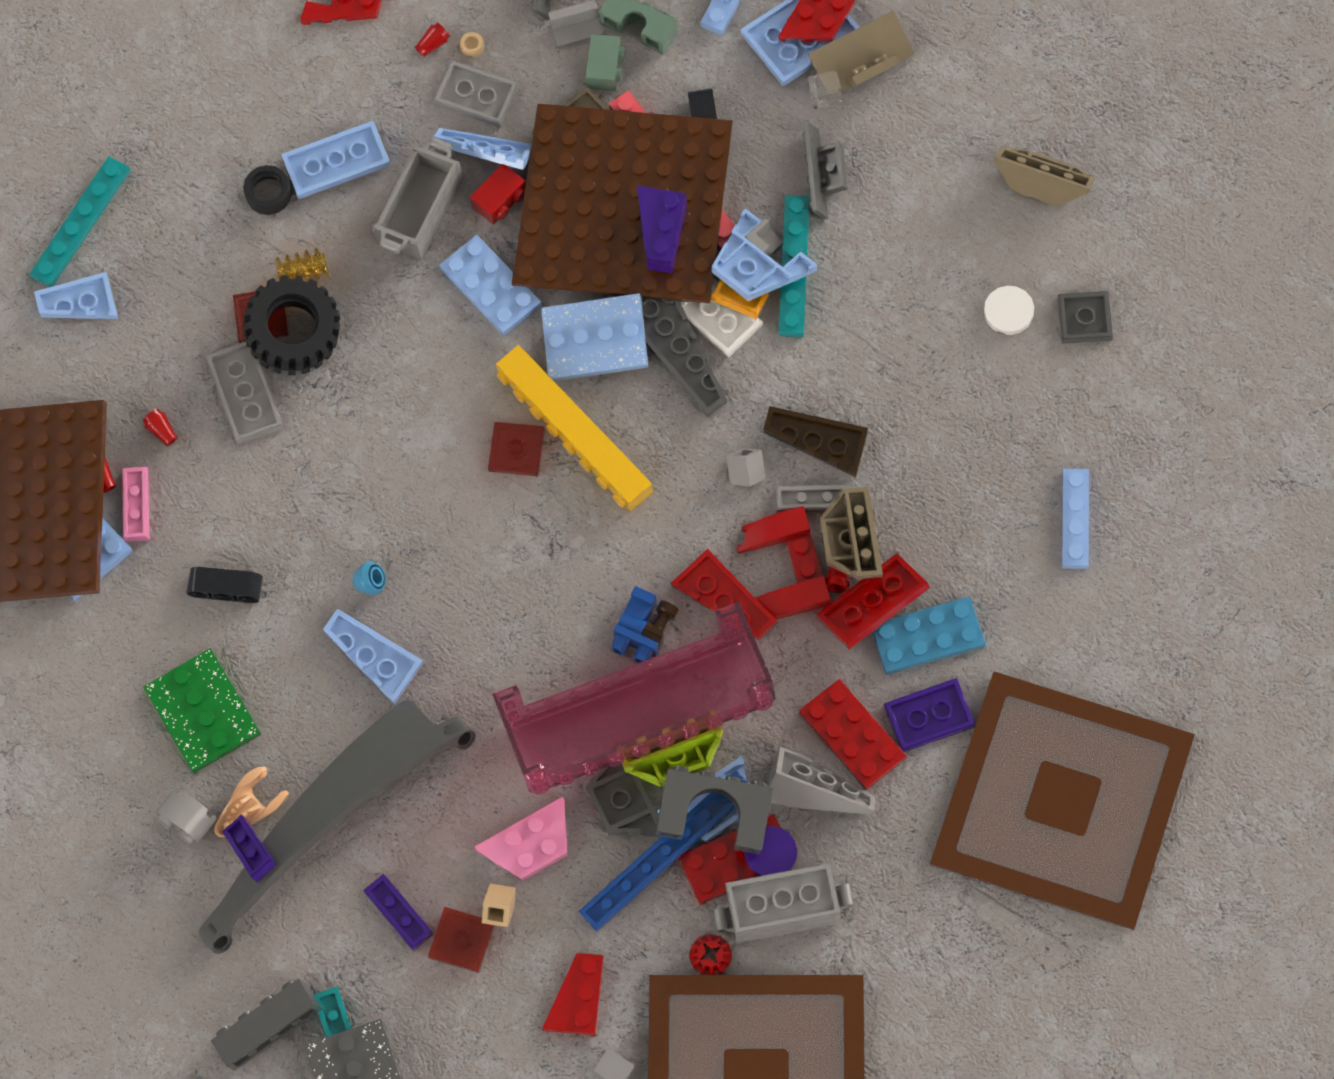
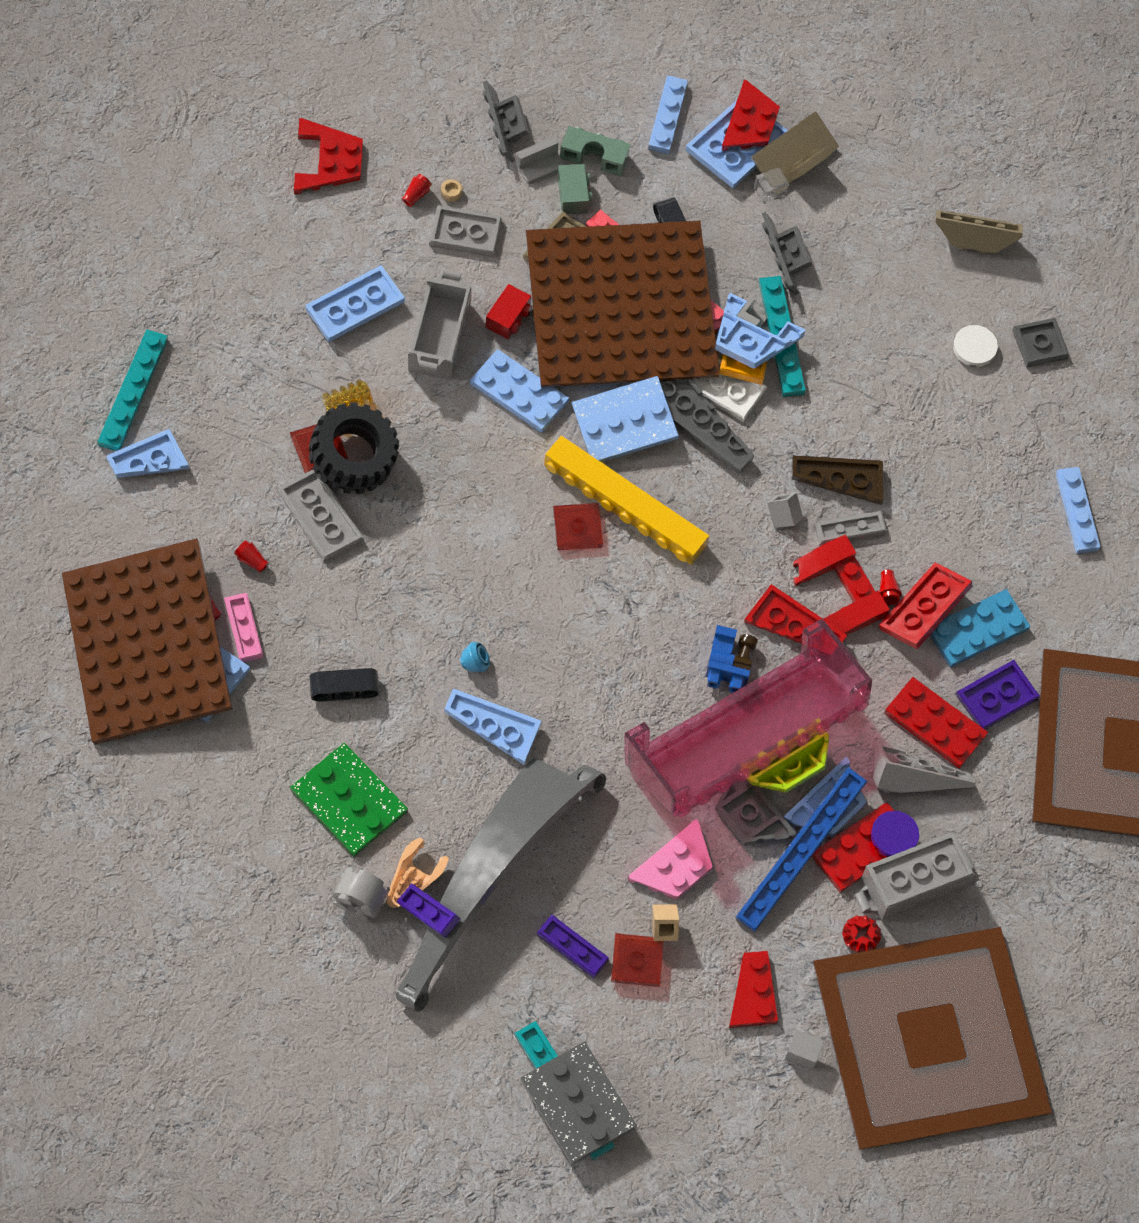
camera: 25 degrees left, 5 degrees down
(263, 173) = (299, 322): black tyre -> none
(266, 1024) = (480, 1065): dark grey brick -> none
(489, 148) = (491, 273): light blue wing -> none
(662, 225) = (664, 313): dark purple wedge -> none
(750, 800) = (869, 789): dark grey arch -> none
(851, 535) = (896, 551): dark tan wedge -> none

